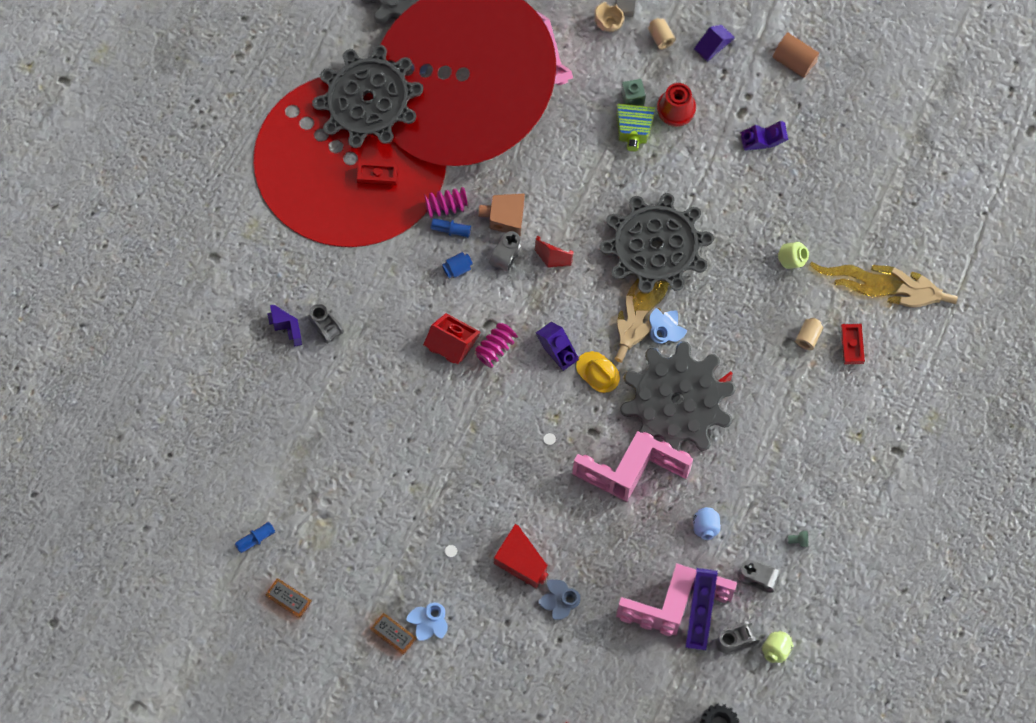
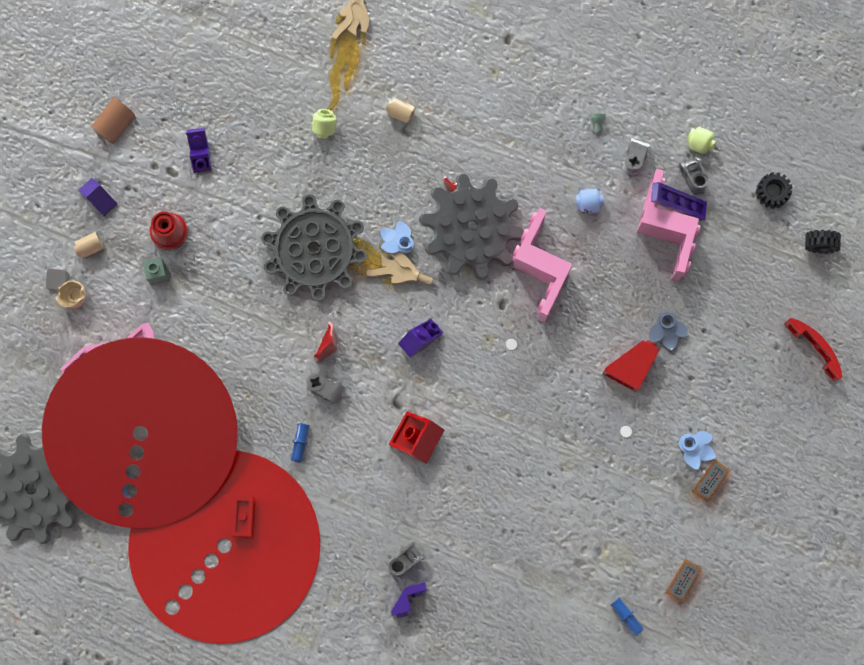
camera: 85 degrees left, 10 degrees up
(356, 80) = (142, 542): dark grey plate -> none
(446, 202) = (274, 447): dark pink piece -> none
(457, 265) = (340, 434): blue brick -> none
(494, 343) = (423, 395): dark pink piece -> none
(505, 212) = (284, 390): nougat torso -> none
(598, 371) = (442, 301): yellow piece -> none
(634, 124) = (188, 270): lime torso -> none
(852, 344) = (409, 73): red plate -> none

